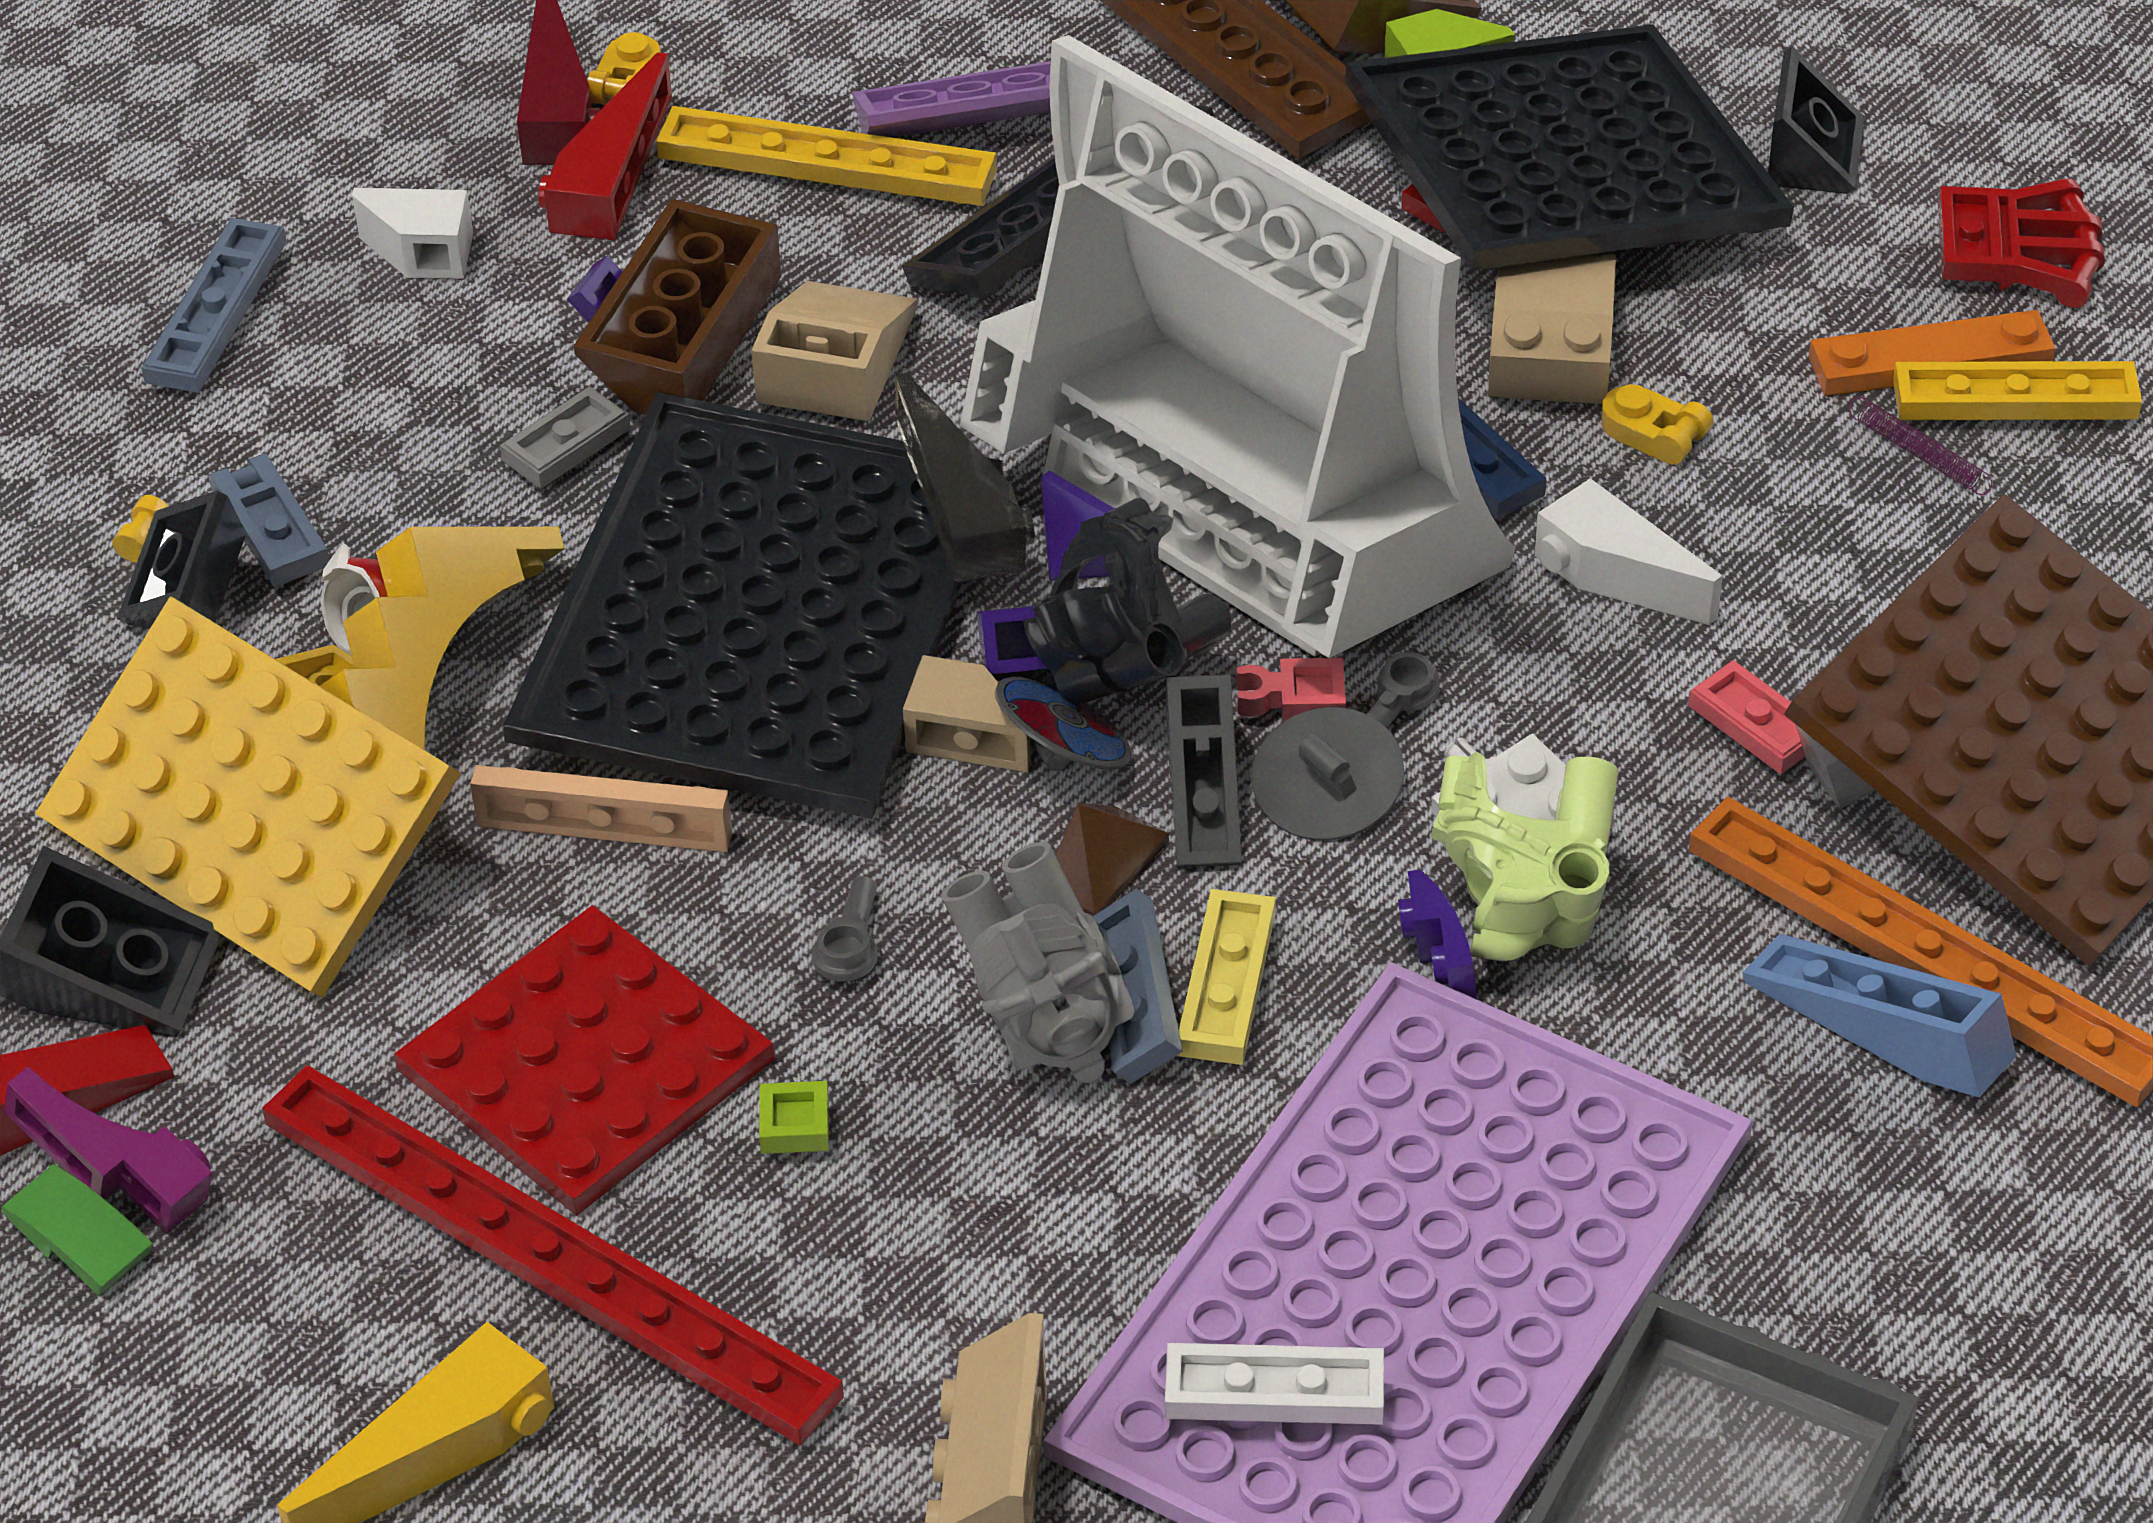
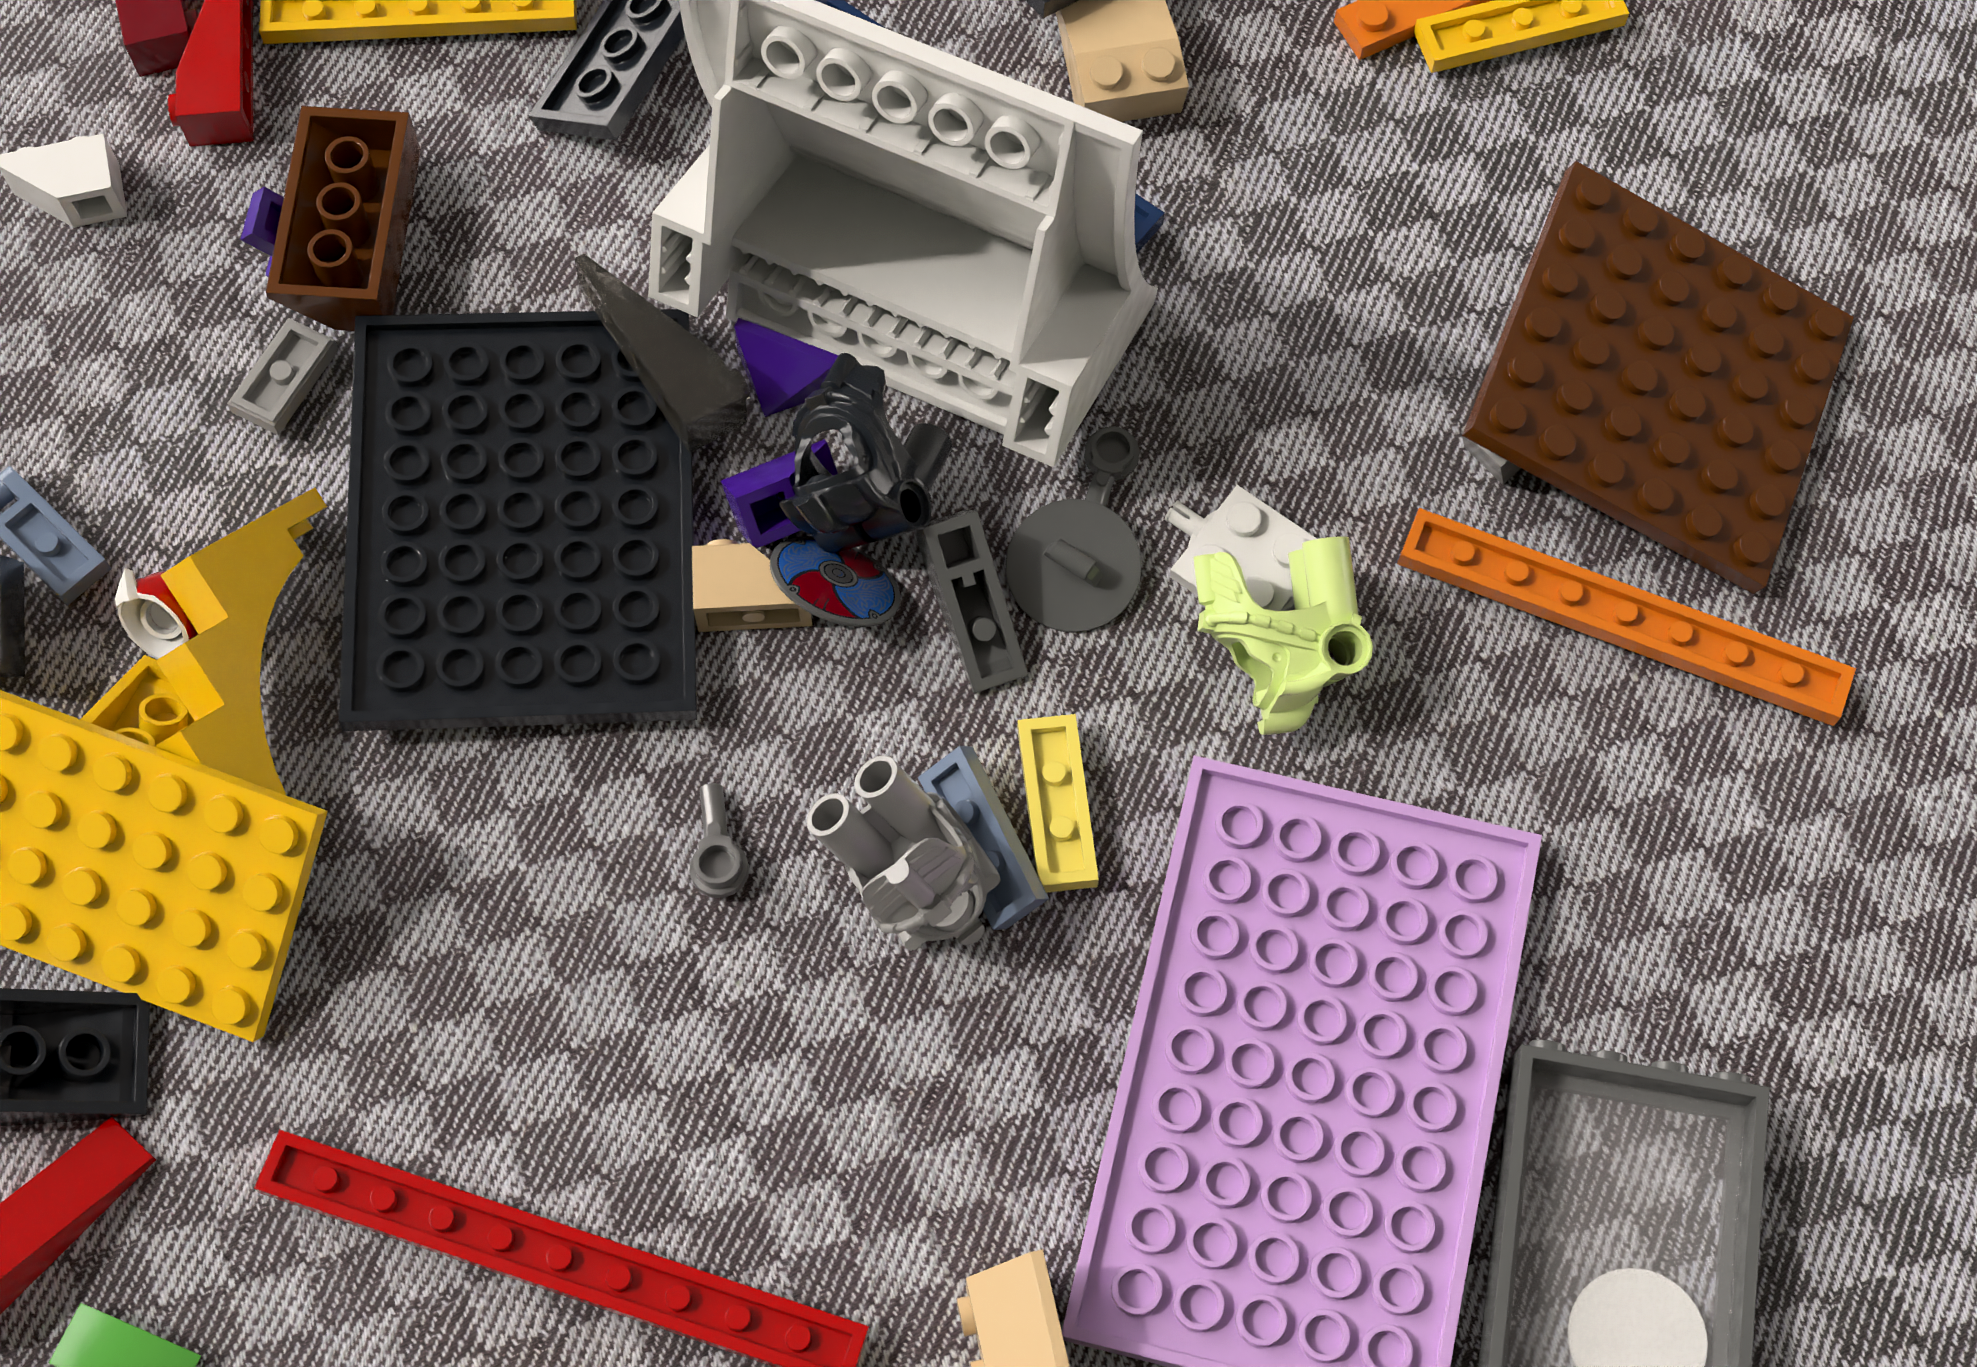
camera: 20 degrees left, 20 degrees up
(154, 1170) = (186, 1288): magenta slope -> none
(584, 1058) = (523, 1040): red plate -> none
(601, 808) = (376, 785): light nougat plate -> none
(794, 1117) = (733, 1056): lime plate -> none
(830, 349) = (494, 220): tan slope -> none
(1106, 853) = (909, 705): reddish brown slope -> none
(1274, 1383) = (1243, 1231): white plate -> none
(1297, 688) = (1021, 483): coral plate -> none
(1437, 933) = (1222, 709): dark purple slope -> none
(1623, 556) = (1252, 277): white slope -> none
(1639, 414) = (1211, 122): yellow plate -> none
(1749, 715) = (1411, 414): coral plate -> none
(1905, 1016) = (1620, 691): medium blue slope -> none
(1920, 450) = (1427, 87): magenta piece -> none

